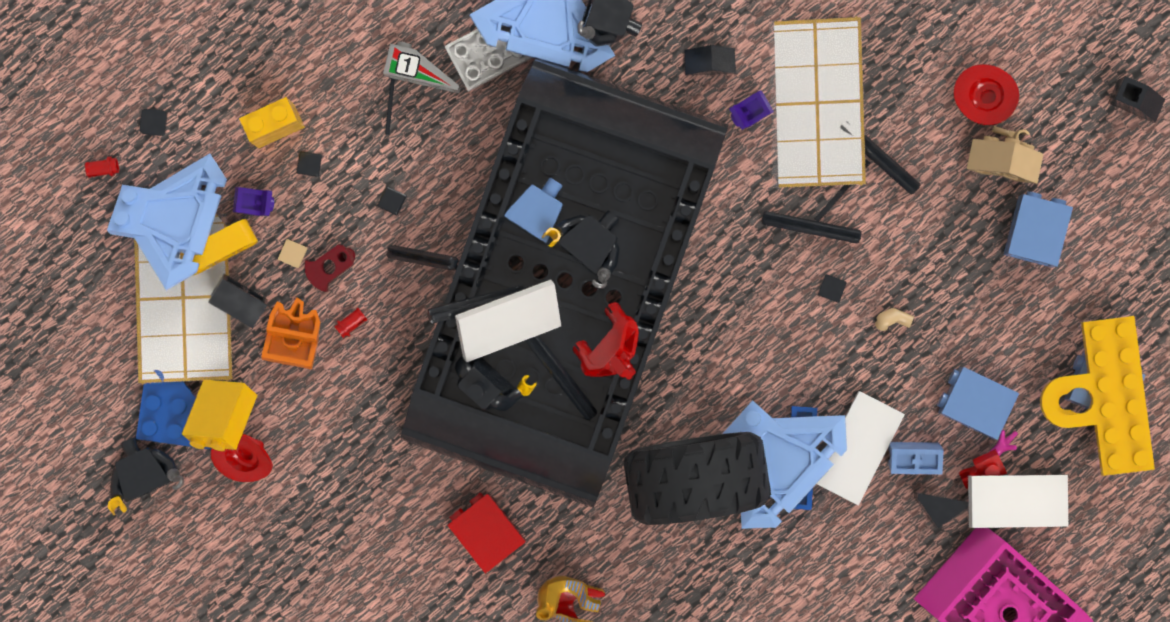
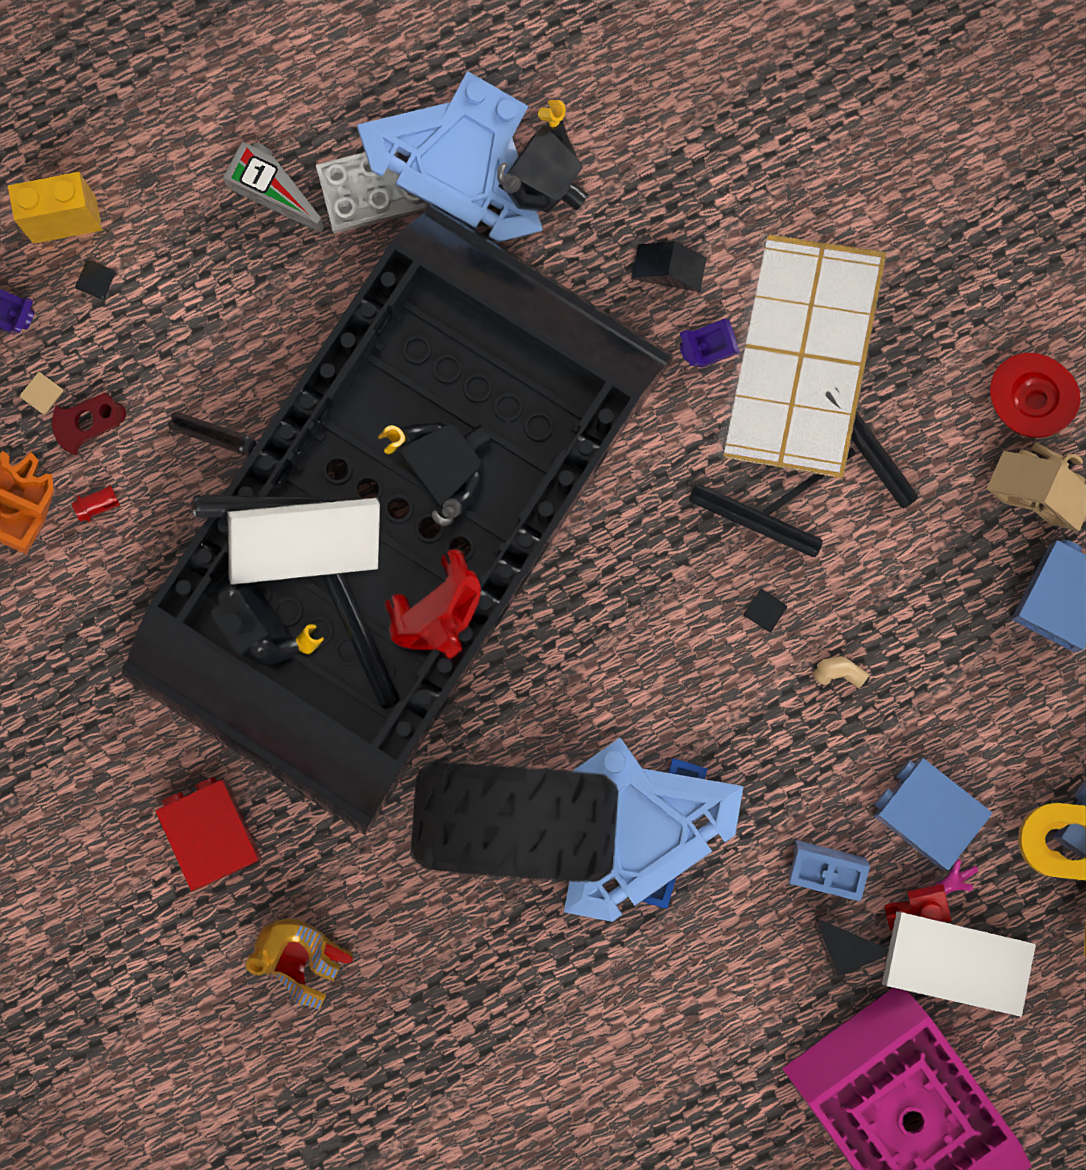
camera: 10 degrees right, 5 degrees down
(389, 110) = (221, 234): black piece -> none
(391, 200) = (194, 354): black piece -> none
(537, 209) = (382, 400): medium blue torso -> none
(868, 436) = (770, 822): white tile -> none

